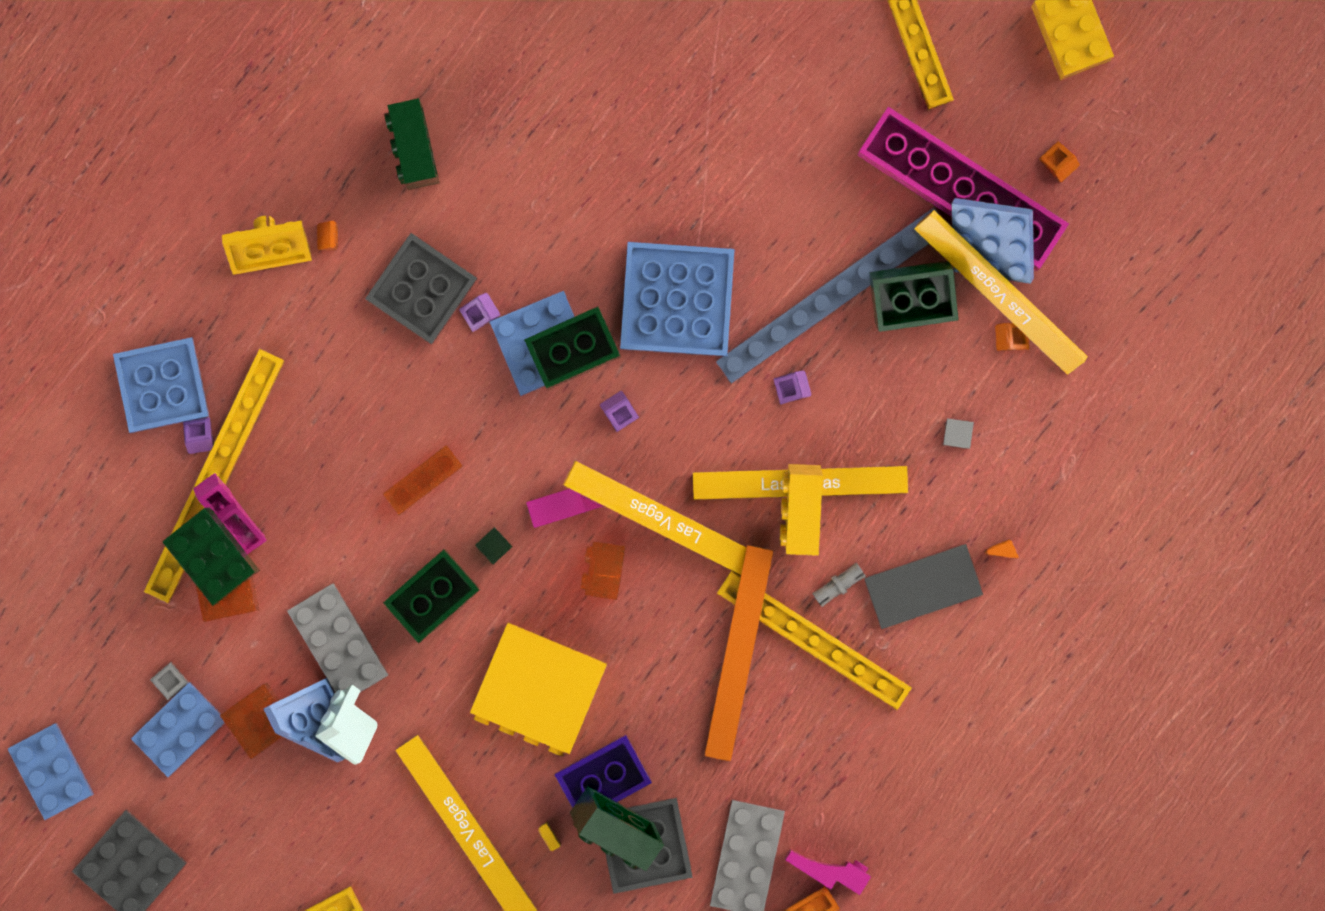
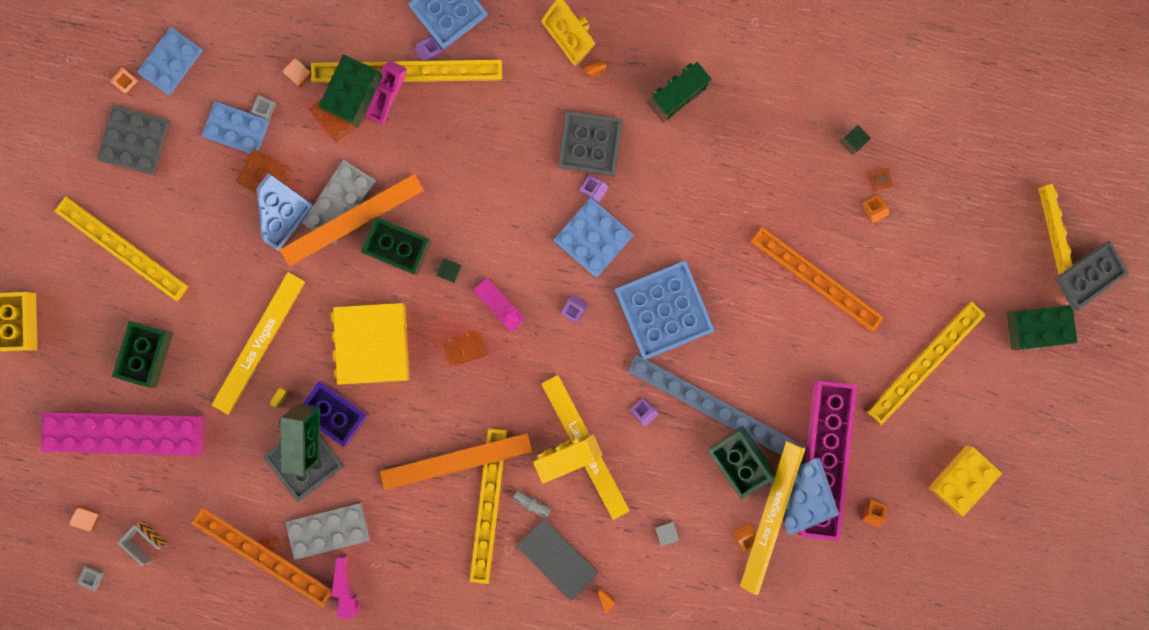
camera: 70 degrees right, 0 degrees up
(44, 843) = (123, 80): none -> orange slope
(145, 616) = (296, 72): none -> orange slope
(346, 726) = (284, 230): light aqua bracket -> none
(370, 636) = (351, 220): none -> orange tile
(422, 480) = (468, 204): clear orange plate -> none
(572, 348) = (599, 257): dark green brick -> none
(656, 517) = (516, 365): yellow tile -> none
(732, 89) = (817, 279): none -> orange tile

